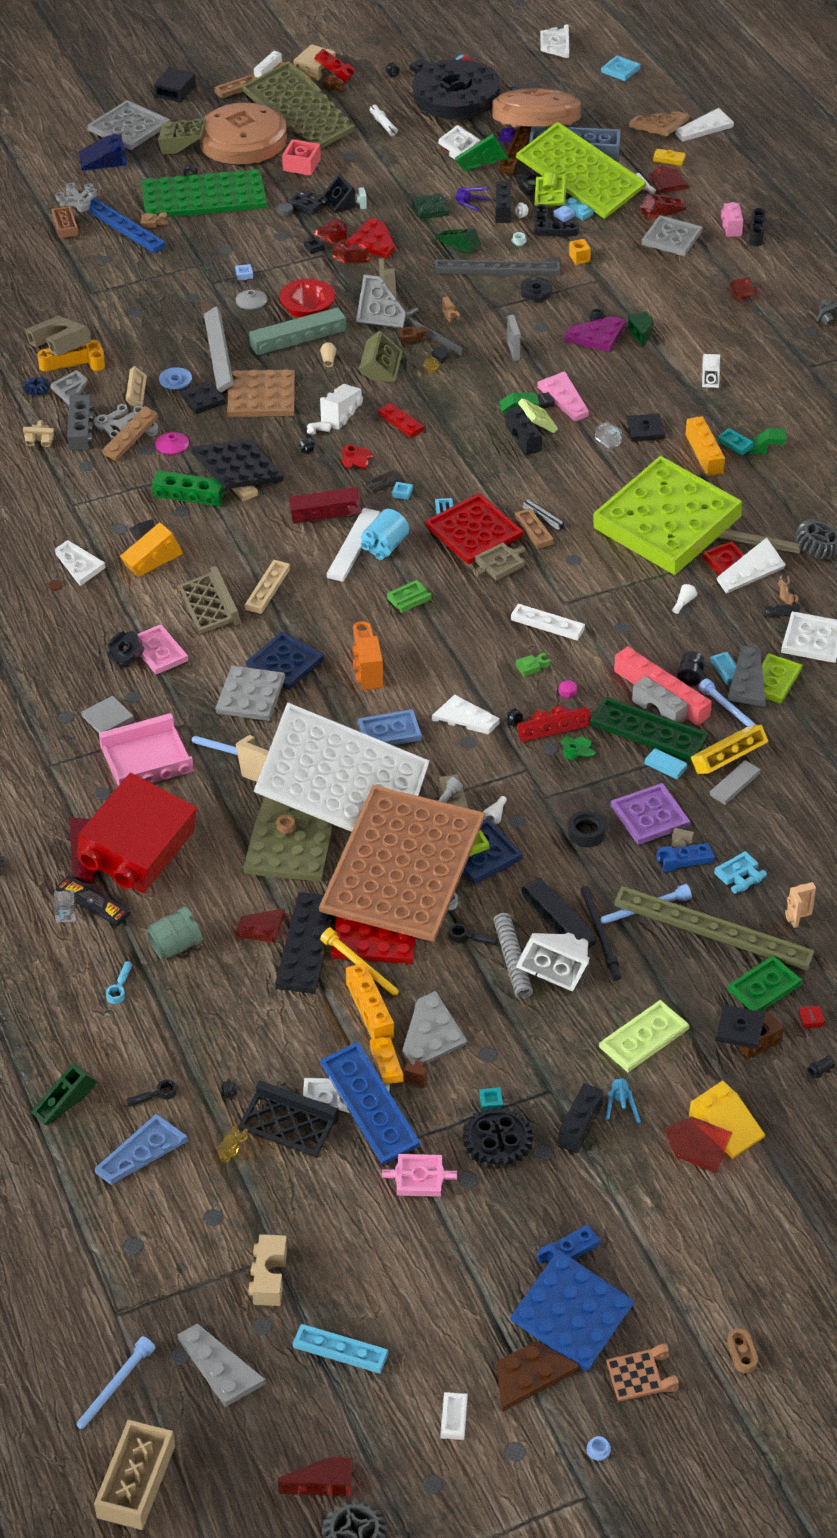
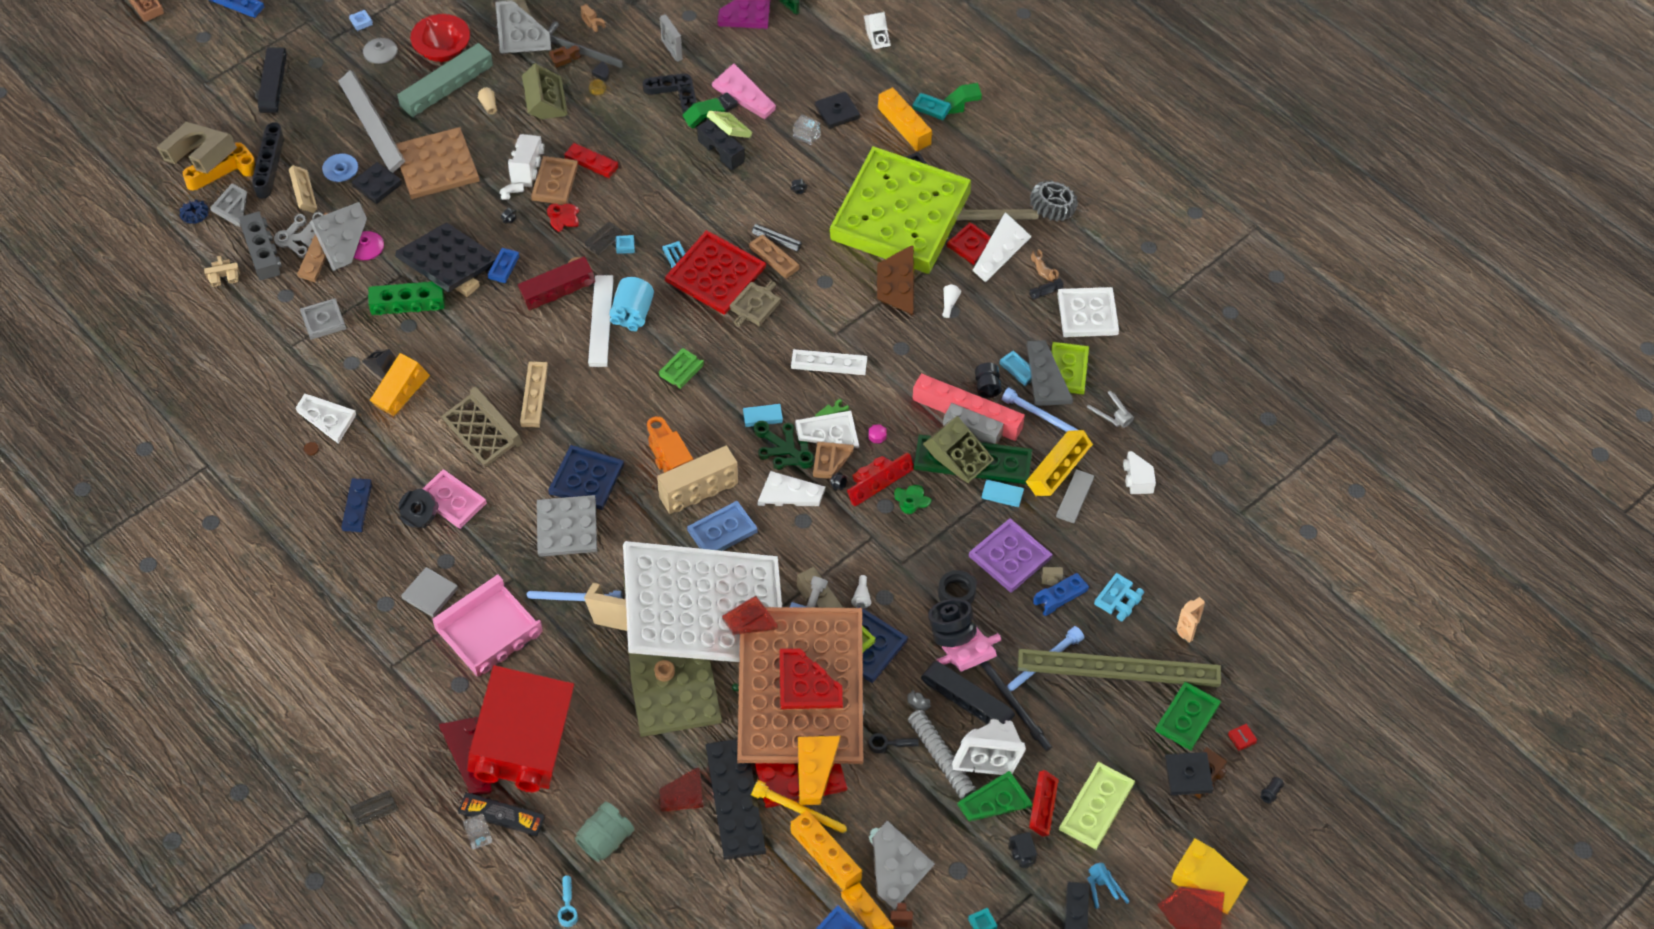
camera: 20 degrees left, 10 degrees up
(74, 635) = (356, 505): none -> dark blue plate
(109, 489) = (323, 318): none -> light grey tile
(116, 360) = (268, 160): none -> black beam
(147, 301) = (272, 80): none -> black beam
(151, 425) = (340, 234): none -> light grey plate
(285, 482) = (503, 265): none -> blue plate
(360, 427) = (554, 180): none -> medium nougat plate
(375, 793) = (749, 618): none -> clear red wing
(383, 682) = (698, 480): none -> tan brick
(385, 926) = (815, 764): none -> light orange wedge
(406, 859) = (806, 683): none -> red plate
(467, 650) = (768, 413): none -> medium azure tile
(488, 692) = (784, 447): none -> dark green plant
(507, 377) = (680, 87): none -> black beam
(509, 907) = (917, 701): none -> dark grey plate
(515, 696) = (830, 458): none -> medium nougat wing
(522, 673) = (828, 428): none -> white wing
(547, 1004) = (995, 798): none -> green wing
(555, 1050) = (1023, 849): none -> black brick
(567, 849) = (952, 622): none -> black wheel
(576, 878) = (971, 653): none -> bright pink plate
(581, 478) = (798, 186): none -> black plate
(592, 1019) = (1043, 803): none -> red plate
(636, 714) = (959, 449): none -> olive slope
(639, 570) = (896, 280): none -> reddish brown wing
(805, 778) = (1140, 475): none -> white slope
(809, 726) = (1122, 416): none -> light grey plant

